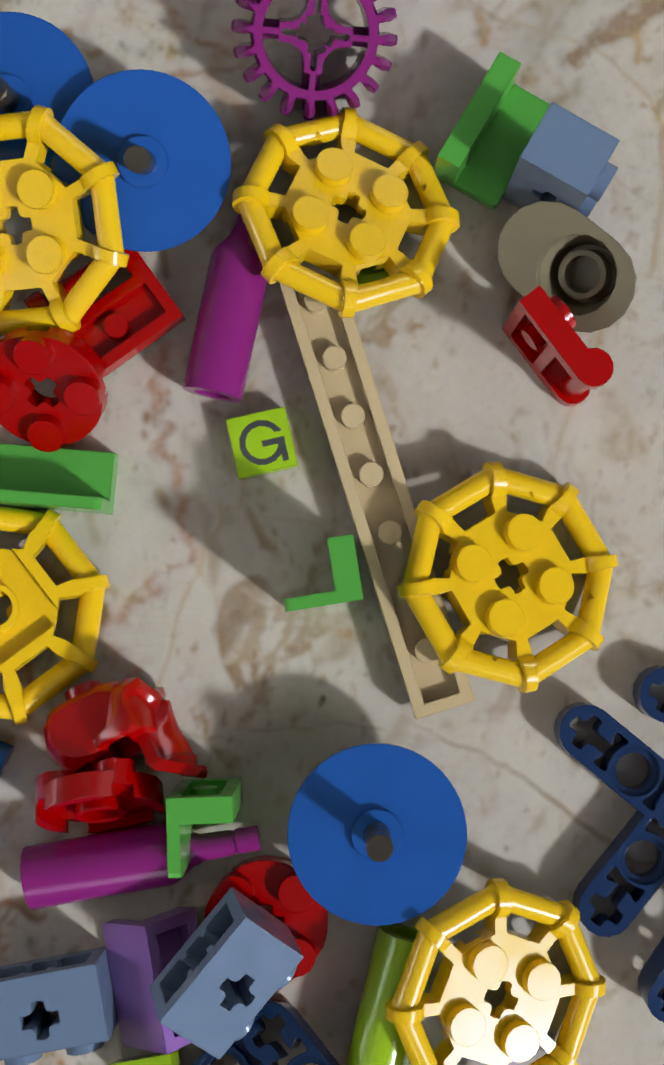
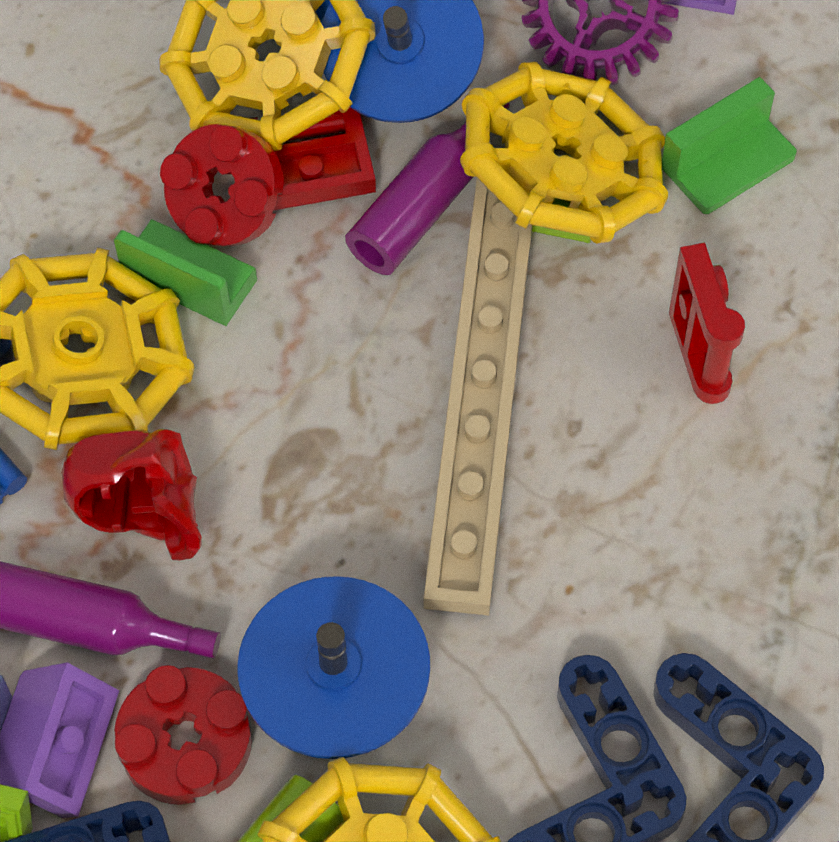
camera: 25 degrees right, 25 degrees down
(105, 798) = (94, 506): red plate -> none
(197, 803) = (173, 572): bright green panel -> none
(225, 974) = (151, 693): sand blue brick -> none
(262, 443) = (395, 316): lime tile -> none
(345, 577) = (396, 443): bright green panel -> none
(543, 579) = (592, 478): yellow plate -> none
(563, 163) = (773, 183): sand blue brick -> none
(568, 259) = (758, 259): dark tan piece -> none

